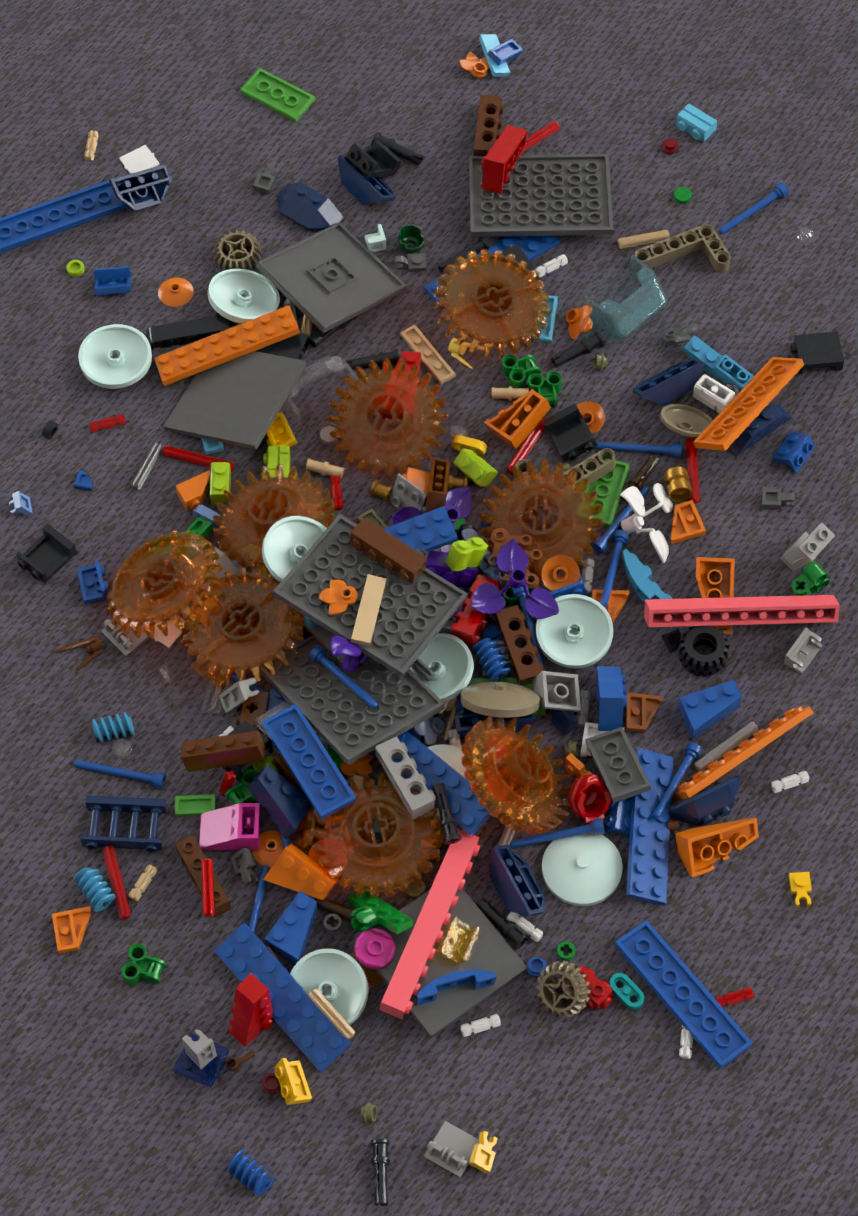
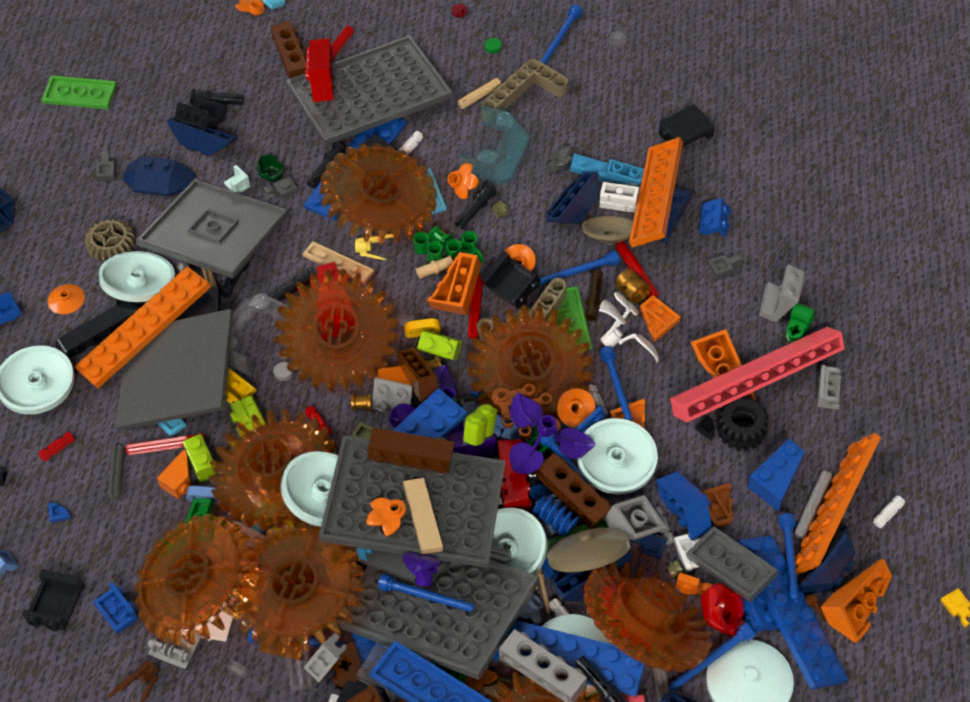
camera: 25 degrees left, 5 degrees down
(324, 468) = (295, 403): tan pin -> none
(601, 545) = (595, 368): blue piece -> none
(641, 578) = (646, 383): dark azure slope -> none

